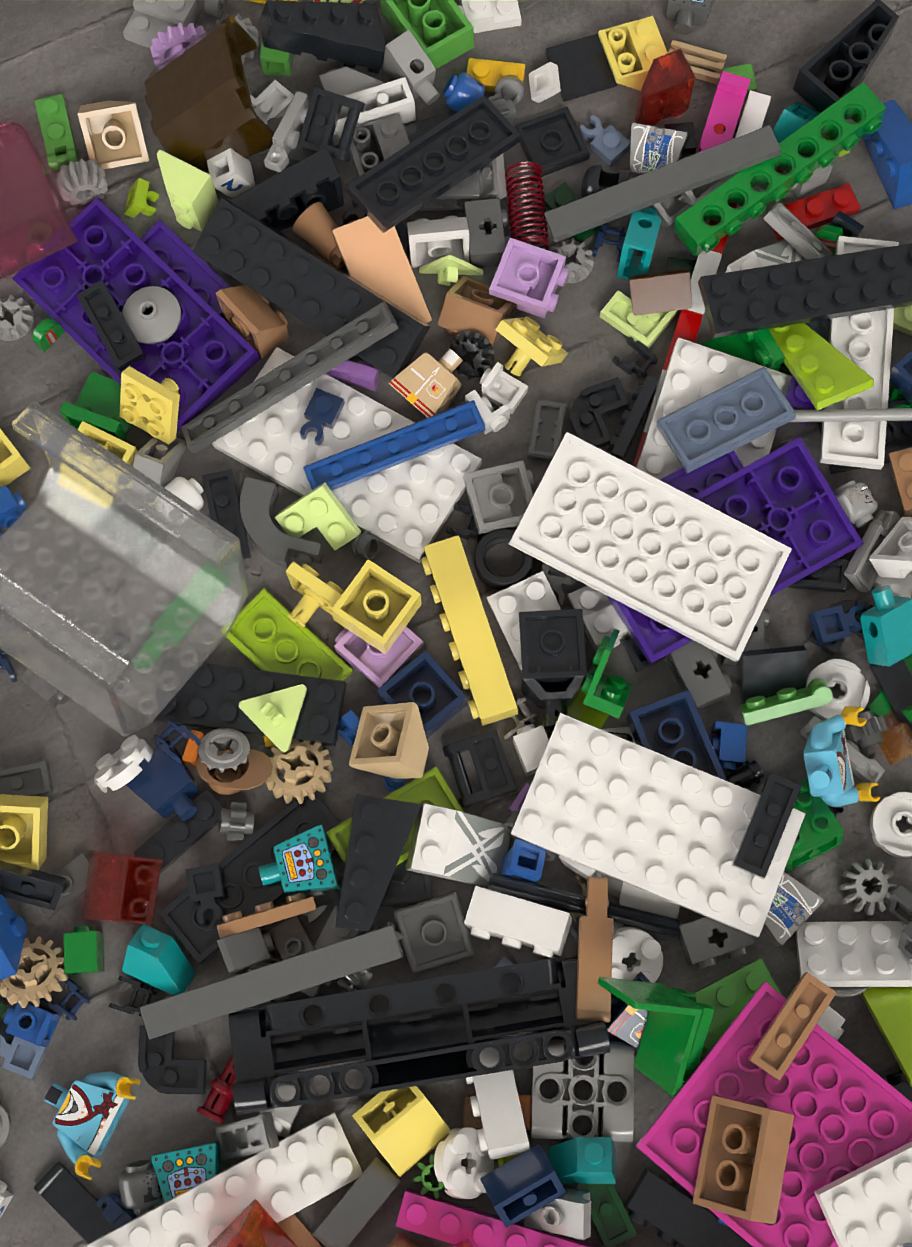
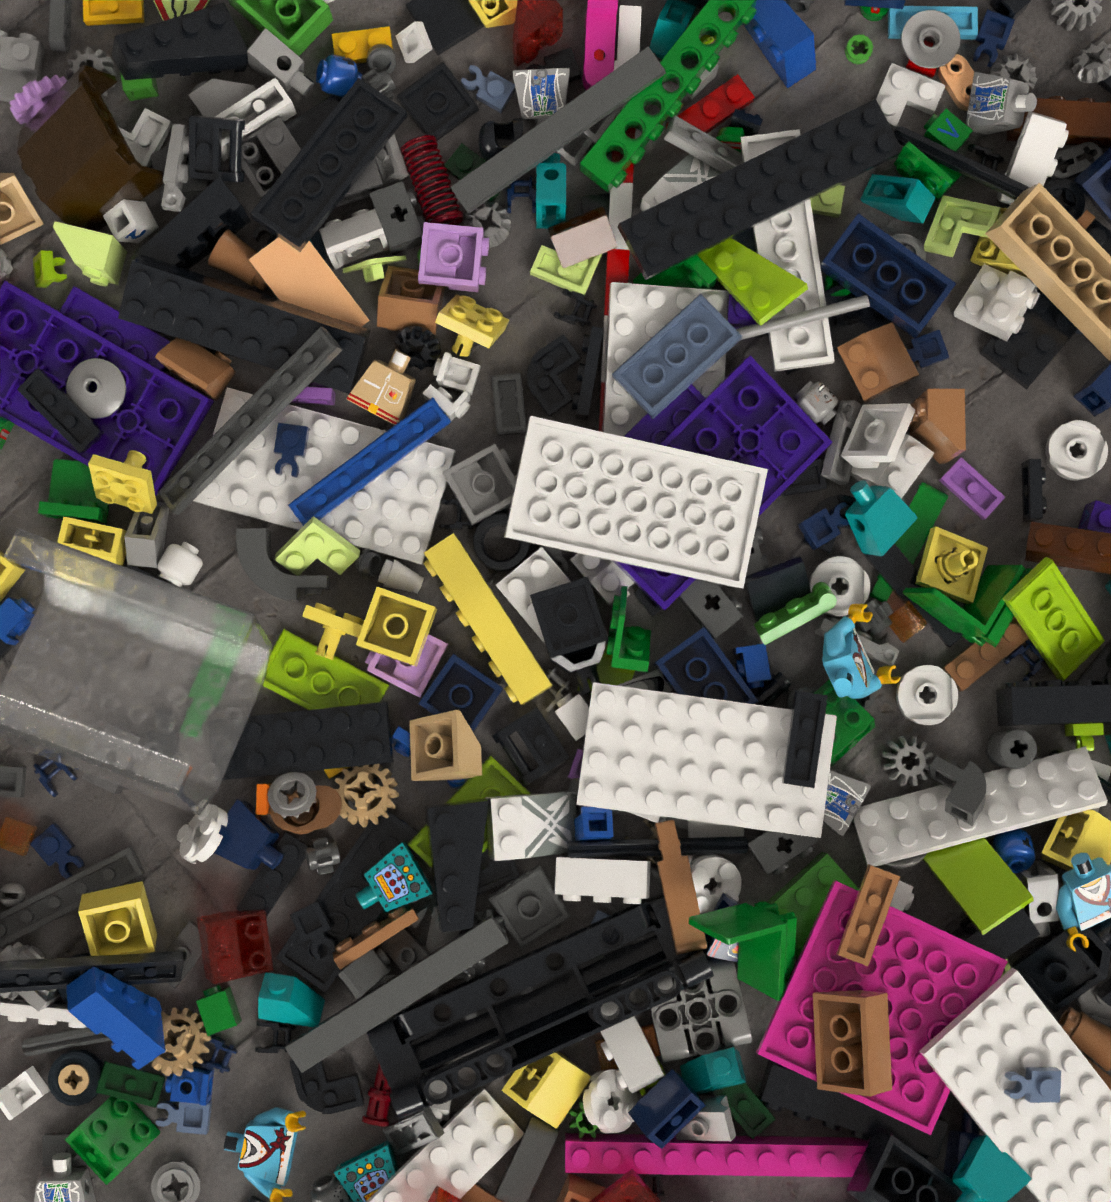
camera: 20 degrees left, 10 degrees up
(167, 748) = (240, 808): dark blue piece -> none
(225, 505) = (226, 567): black plate -> none
(276, 713) = (331, 749): yellowish green piece -> none
(395, 565) = (399, 577): none -> white cone

